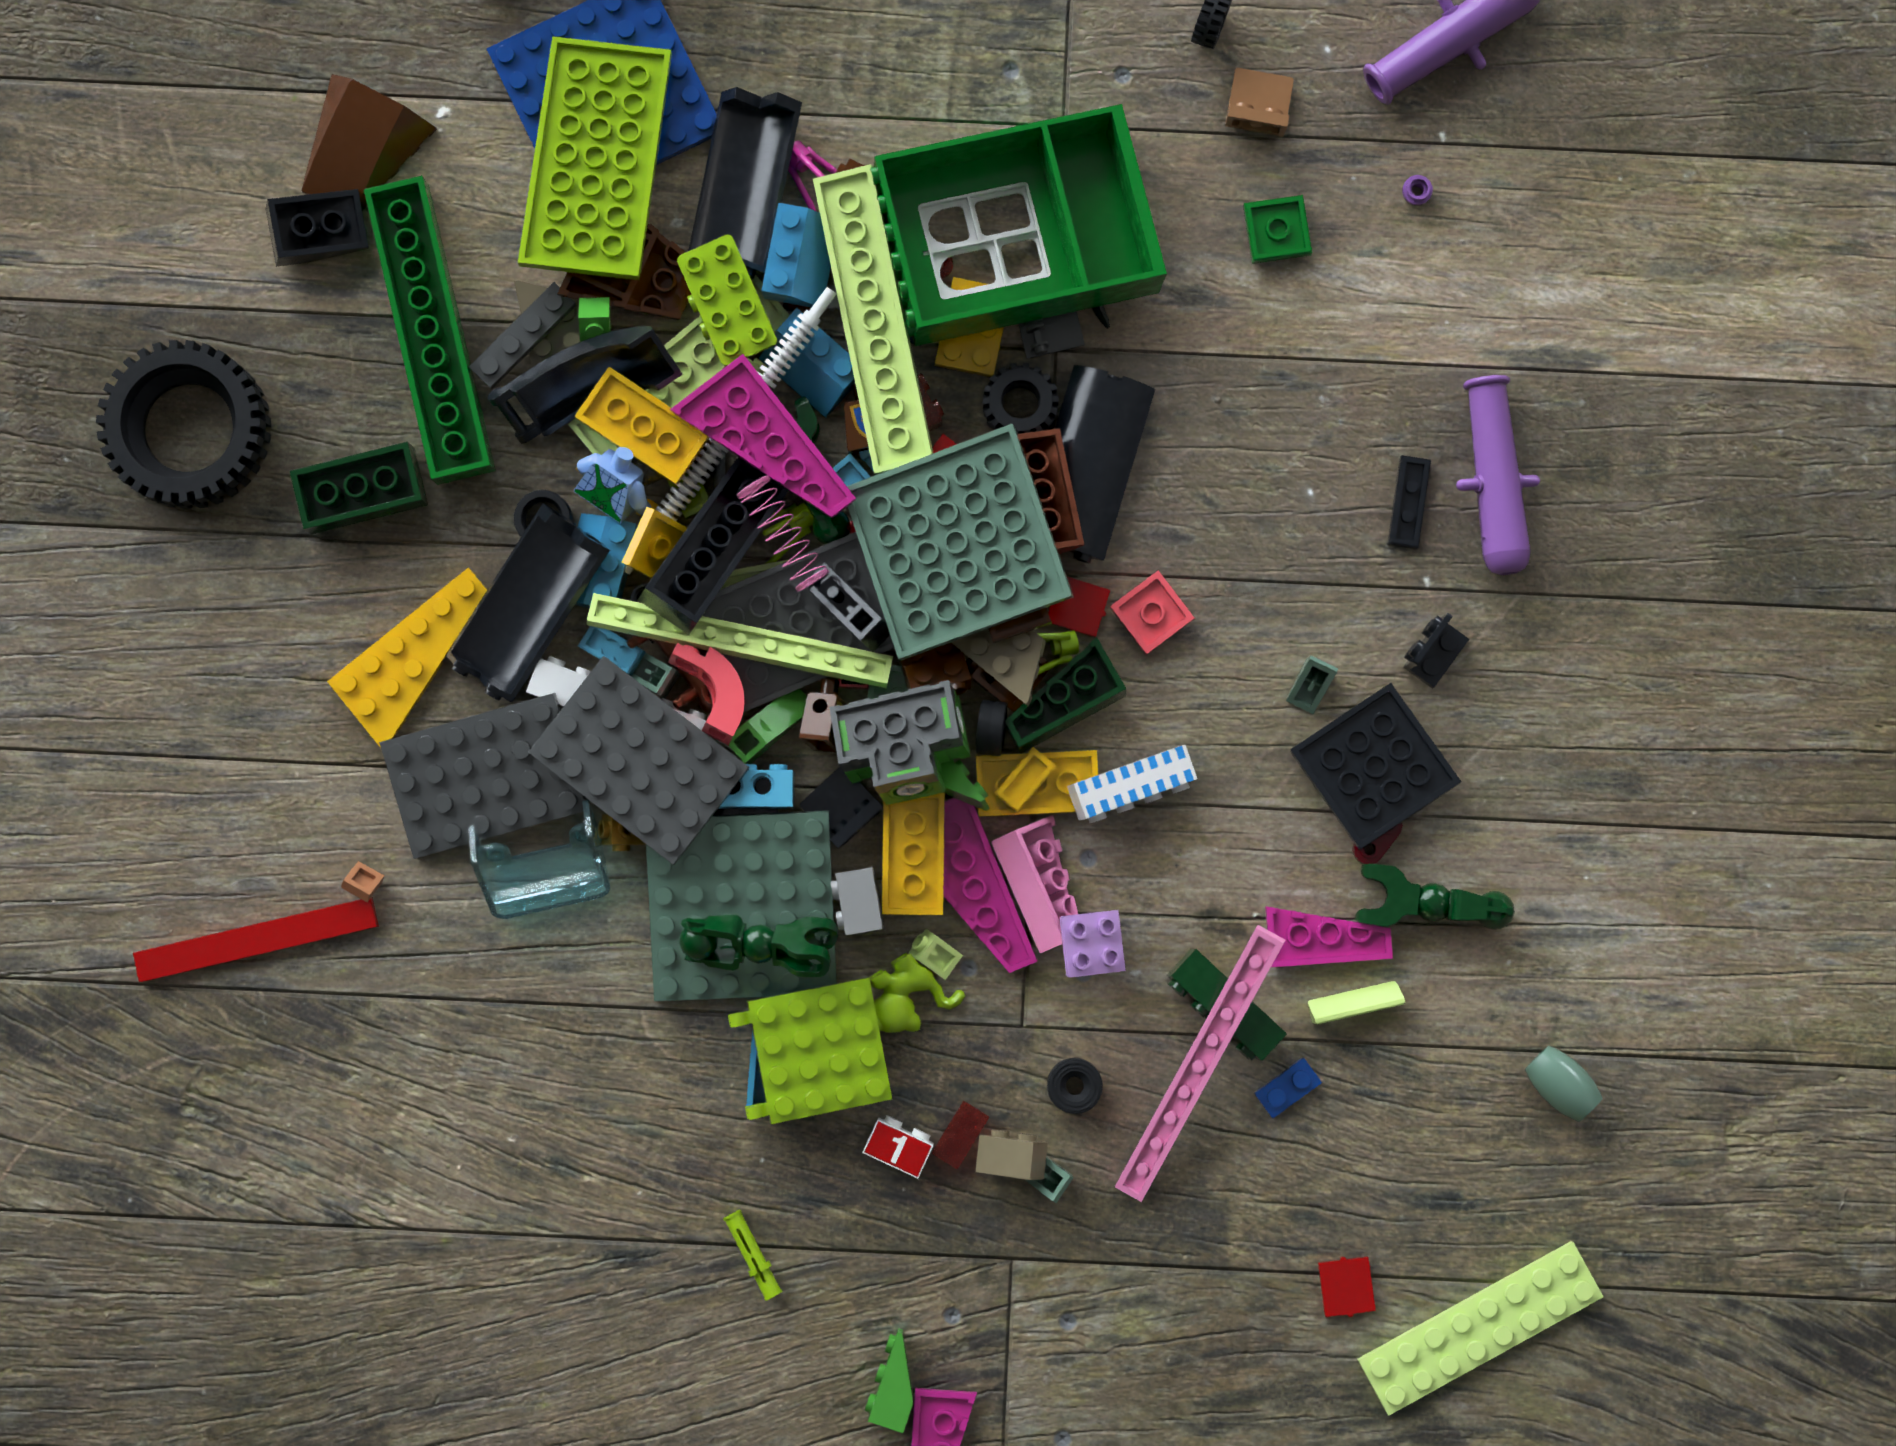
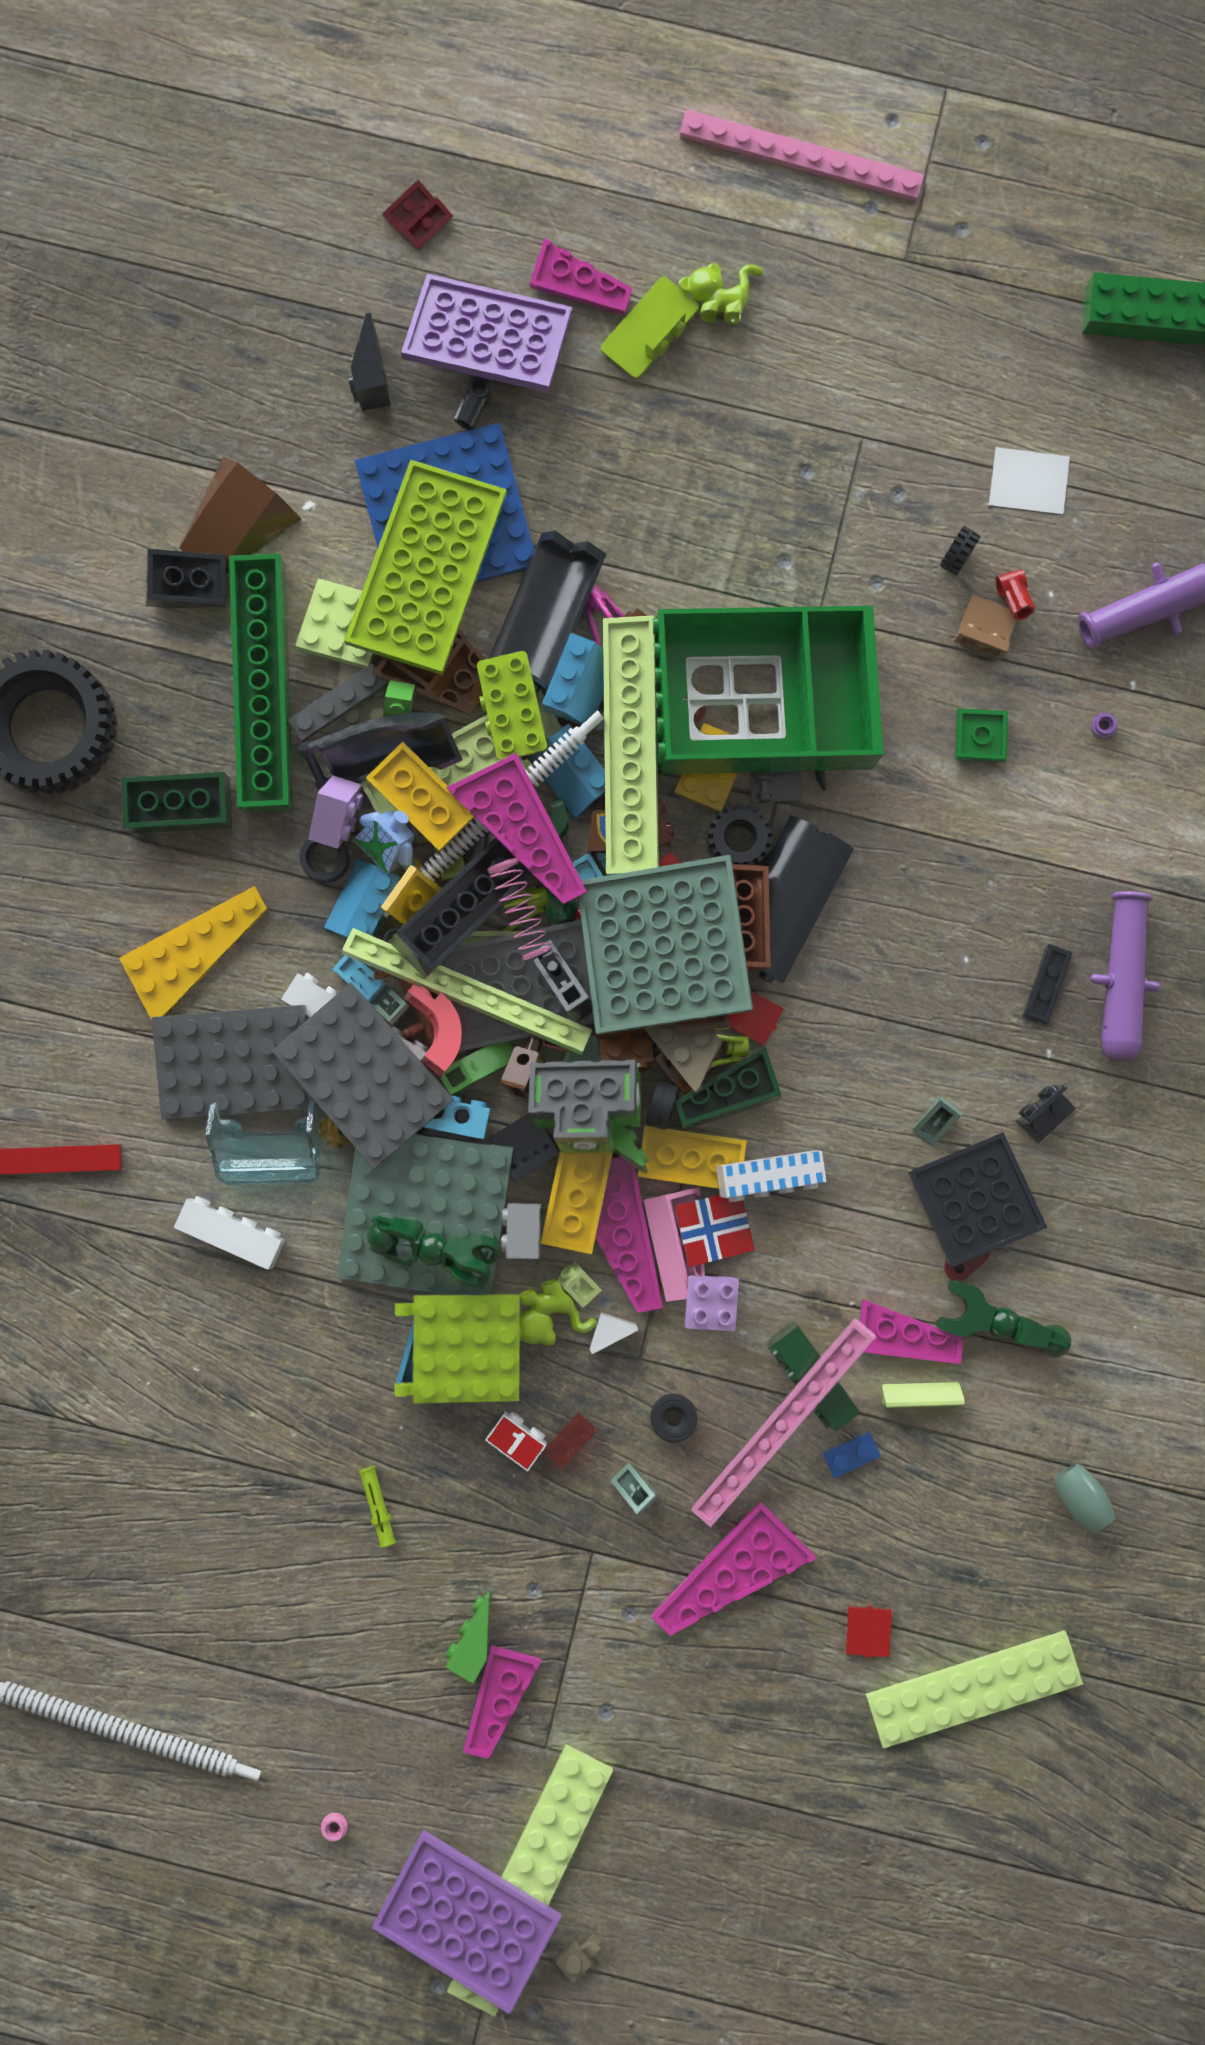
camera: 10 degrees right, 0 degrees up
(362, 881) = (115, 1130): nougat plate -> none
(494, 246) = (328, 624): none -> yellowish green plate
(520, 974) = (230, 1233): none -> white brick
(527, 603) = (296, 926): black cylinder -> none
(546, 462) = (335, 812): none -> lavender brick
(981, 999) = (610, 1330): none -> white slope
(1011, 1156) = (609, 1467): dark tan brick -> none
(1025, 779) = (682, 1154): yellow tile -> none
(1078, 859) = (713, 1229): none -> sticker
(1152, 612) = (815, 1034): coral plate -> none
(1186, 1236) = (743, 1562): none -> dark pink wing
(1283, 52) = (1014, 590): none -> red piece

